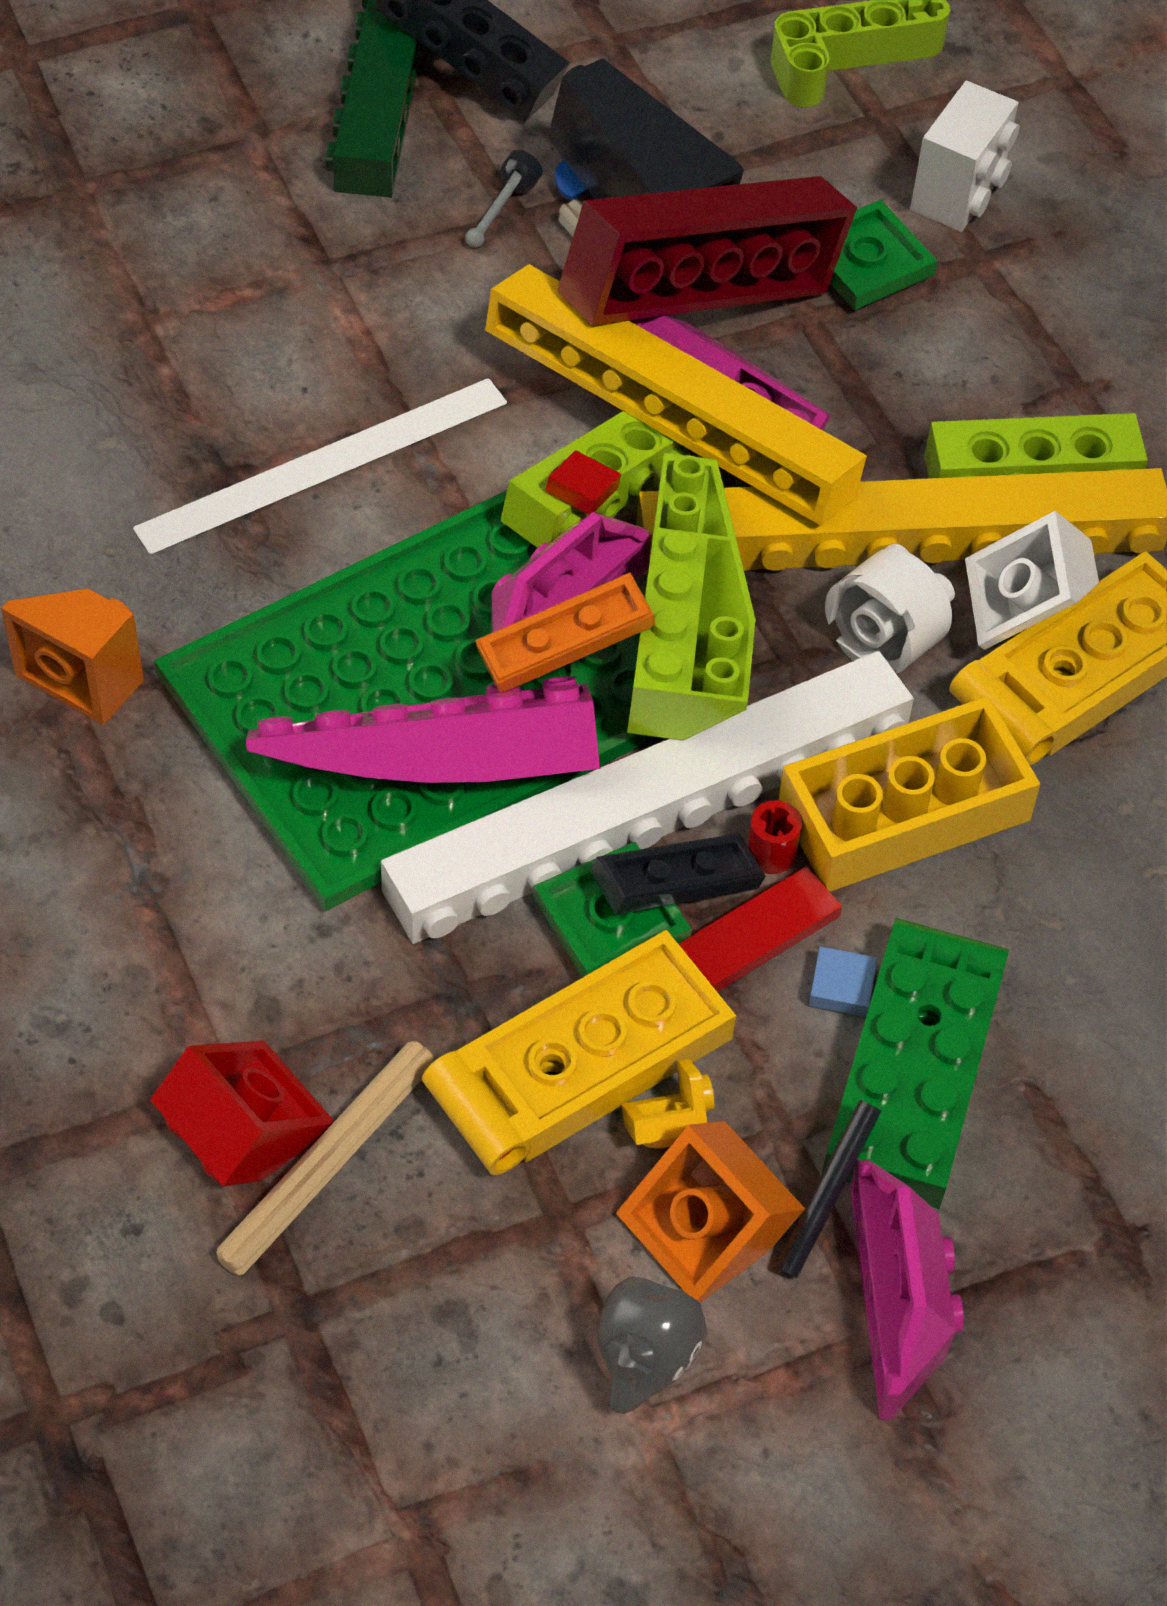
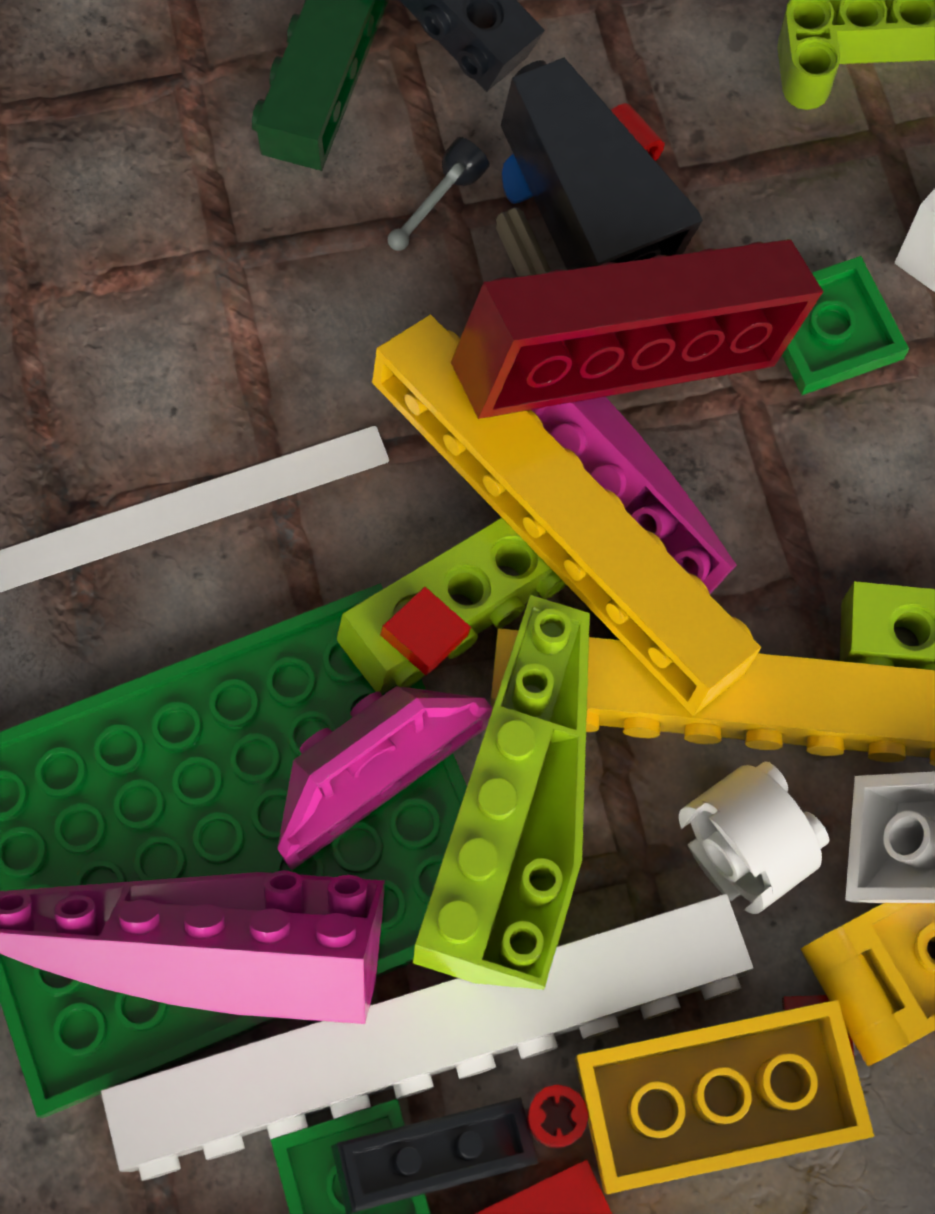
camera: 15 degrees right, 15 degrees up
(565, 632) = (355, 850): orange tile -> none

